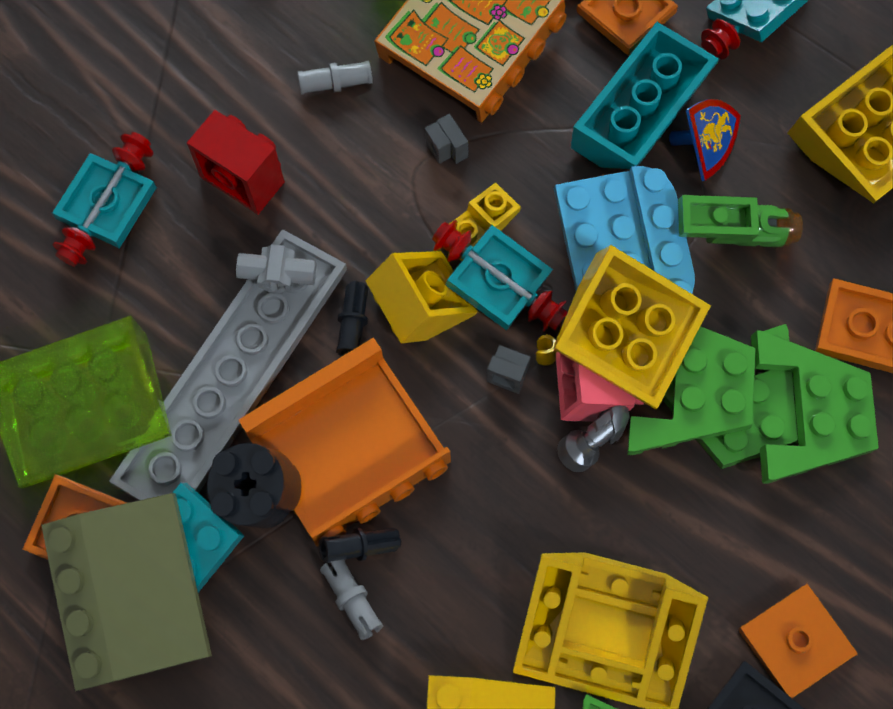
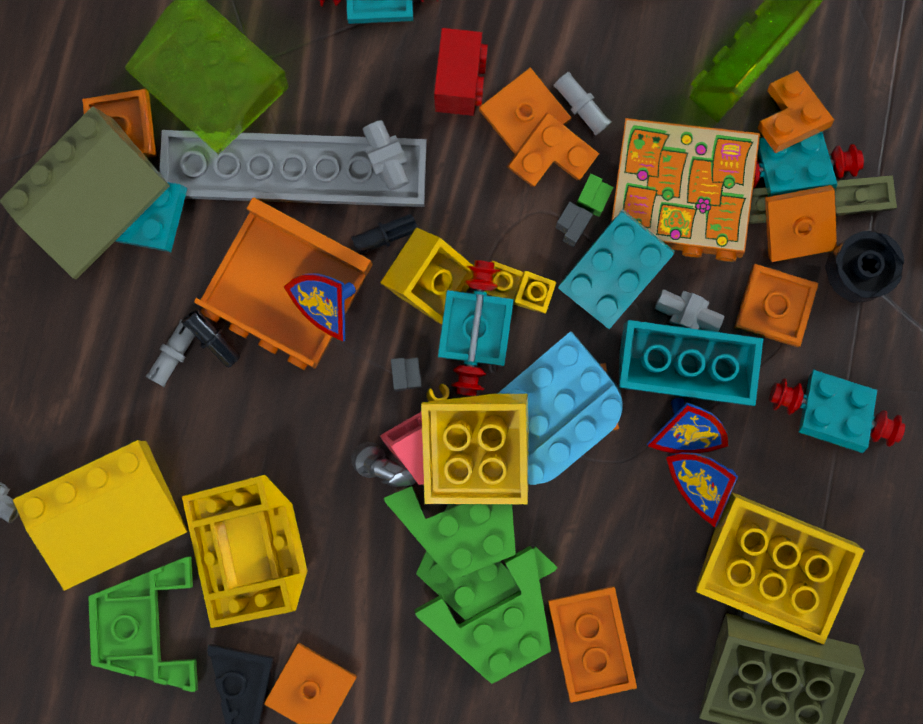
camera: 55 degrees right, 15 degrees up
(233, 480) = (210, 237): black brick -> none
(312, 133) = (520, 108): none -> orange plate
(358, 123) = (549, 144): none -> orange plate
(387, 406) = (321, 301): none -> shield
(428, 106) = (594, 195): none -> bright green piece
(514, 120) = (616, 269): none -> teal plate
(588, 82) = (689, 311): none -> light grey axle
(737, 221) = (617, 490): bright green plate -> none
(768, 147) = (702, 483): none -> shield

